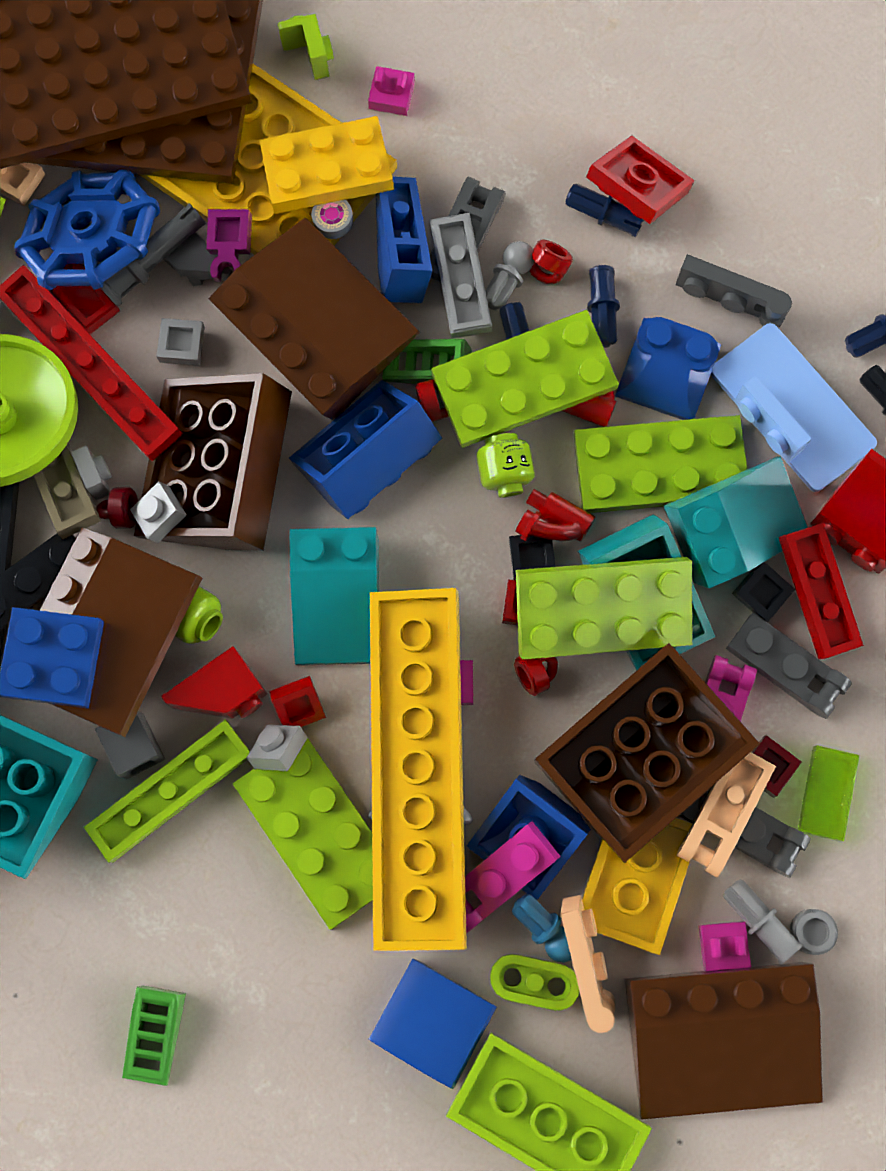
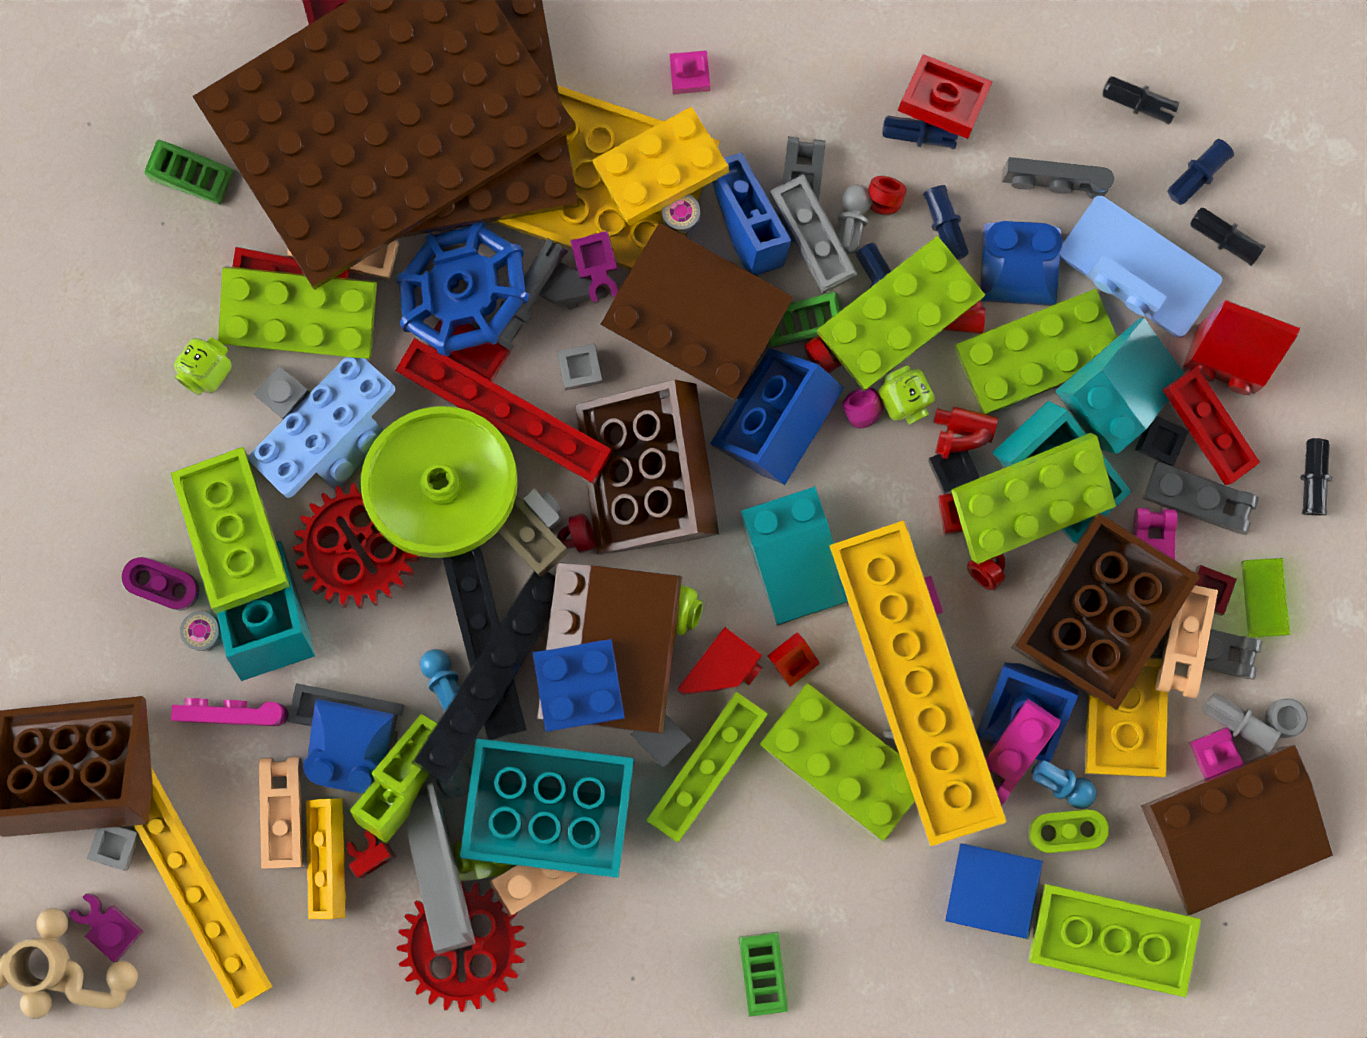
camera: 20 degrees left, 5 degrees up
(158, 512) = (616, 528): light grey plate -> none
(277, 747) = (789, 702): light grey plate -> none
(305, 31) = (610, 51): lime bracket -> none
(457, 467) = (863, 407): none -> dark pink tile
(588, 965) = (1110, 802): light nougat plate -> none
(842, 240) = (1139, 99): none -> black axle

